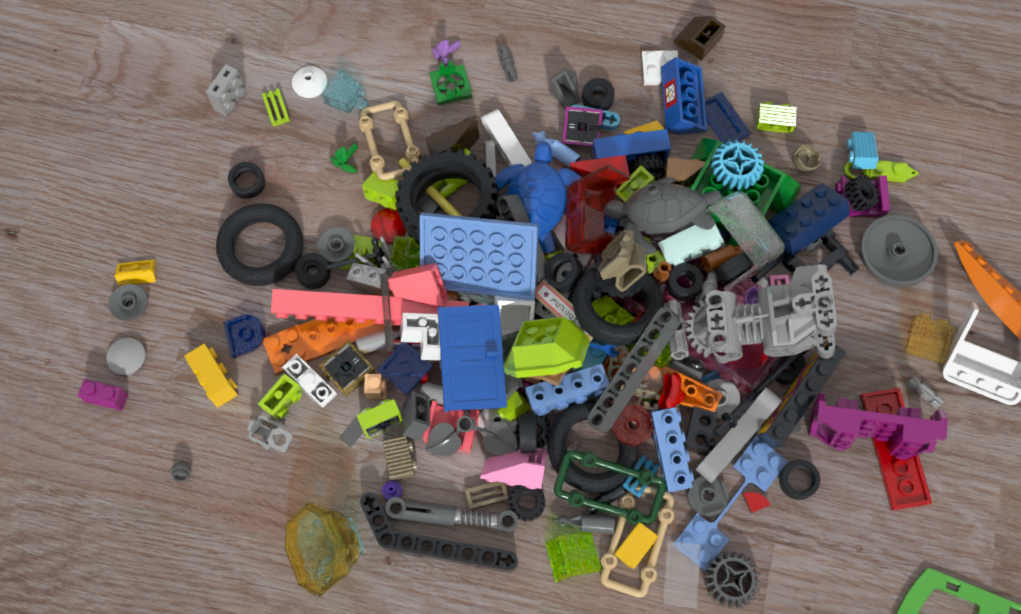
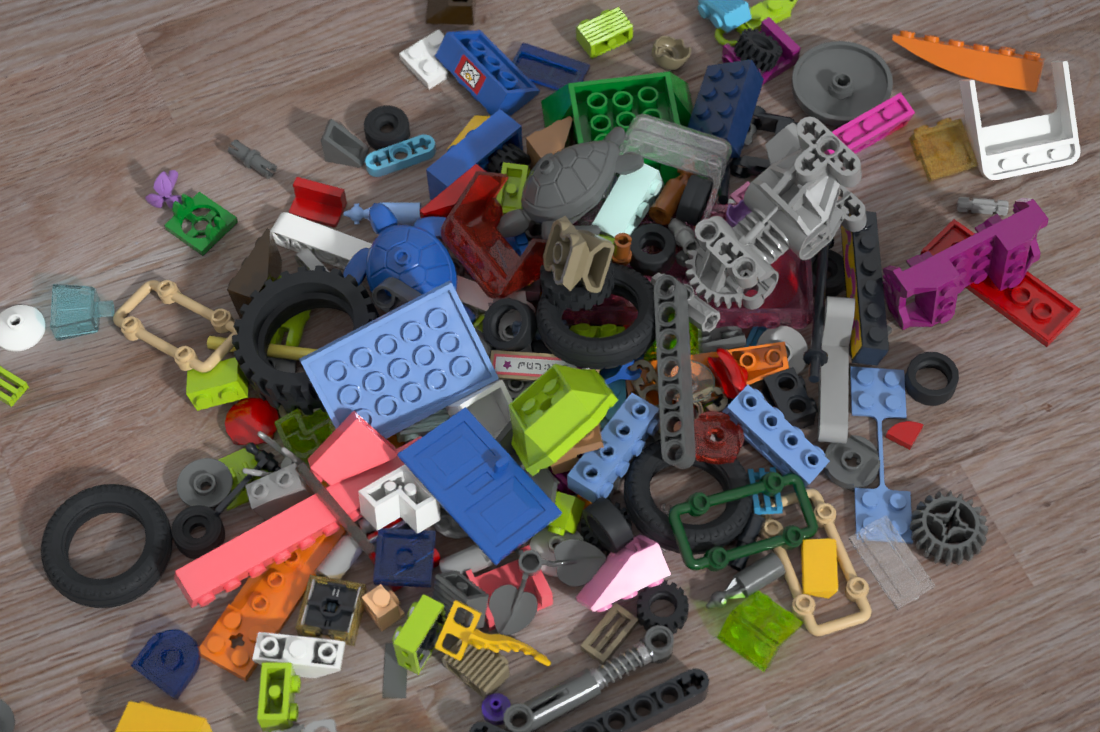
camera: 35 degrees left, 10 degrees down
(241, 168) = (19, 469): black tyre -> none
(342, 156) = (134, 380): green plant -> none
(413, 453) = (481, 640): none -> yellow piece
(523, 116) = (318, 202): none -> red panel
(581, 126) = (397, 169): black piece -> none
(729, 170) = (610, 100): medium azure gear -> none
(888, 292) = (874, 124): none -> dark pink fence

